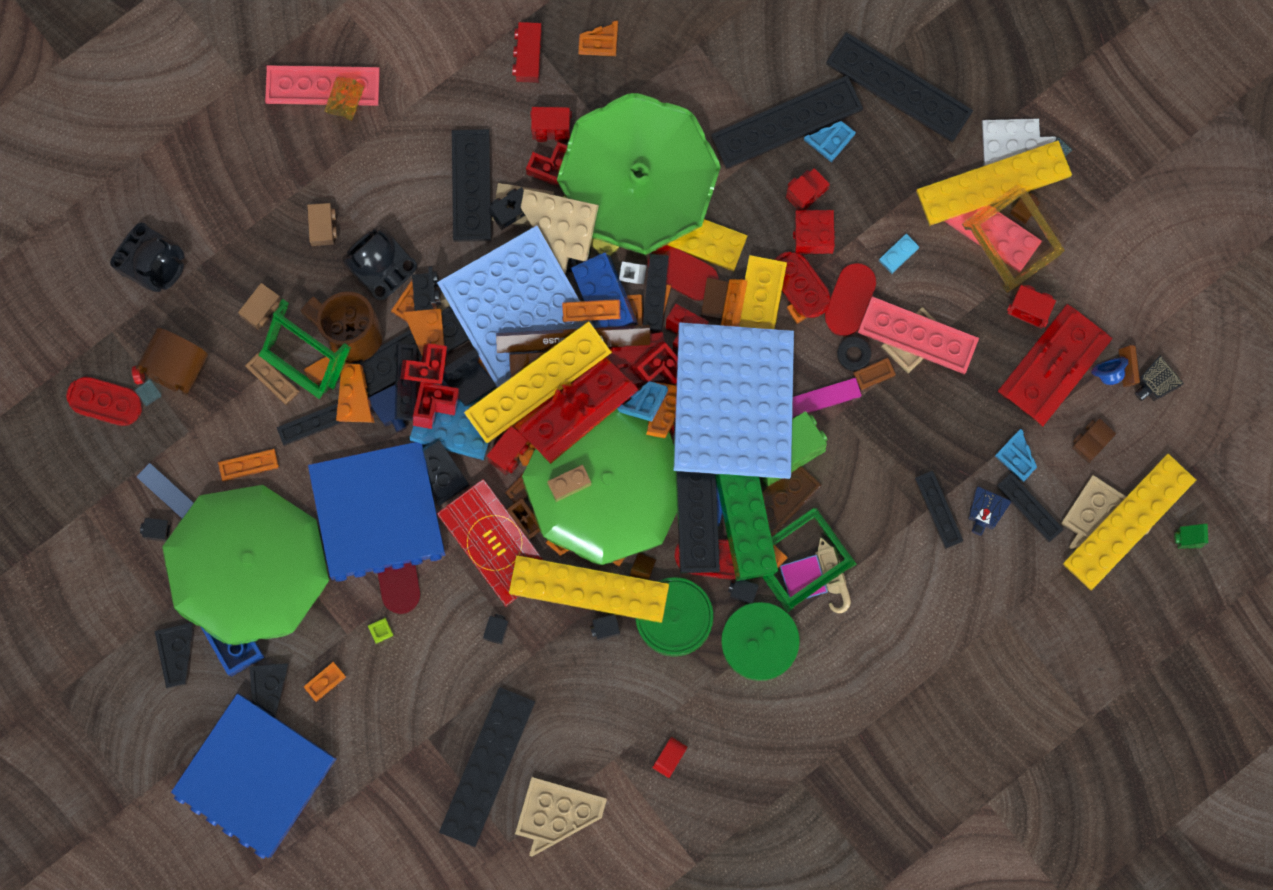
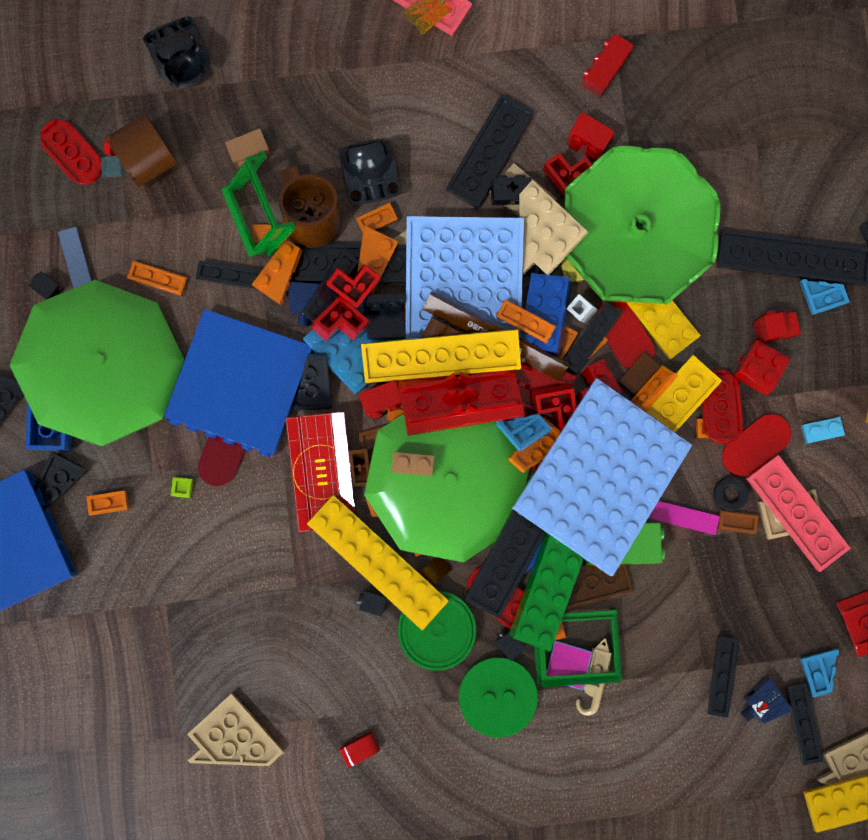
camera: 30 degrees right, 5 degrees up
(272, 379) = (221, 218): medium nougat tile -> none
(321, 224) = (342, 109): medium nougat brick -> none
(424, 290) = (395, 218): black bracket -> none
(487, 767) = (199, 660): black plate -> none
(496, 629) = (278, 547): black brick -> none
(599, 41) = (674, 92): orange wing -> none

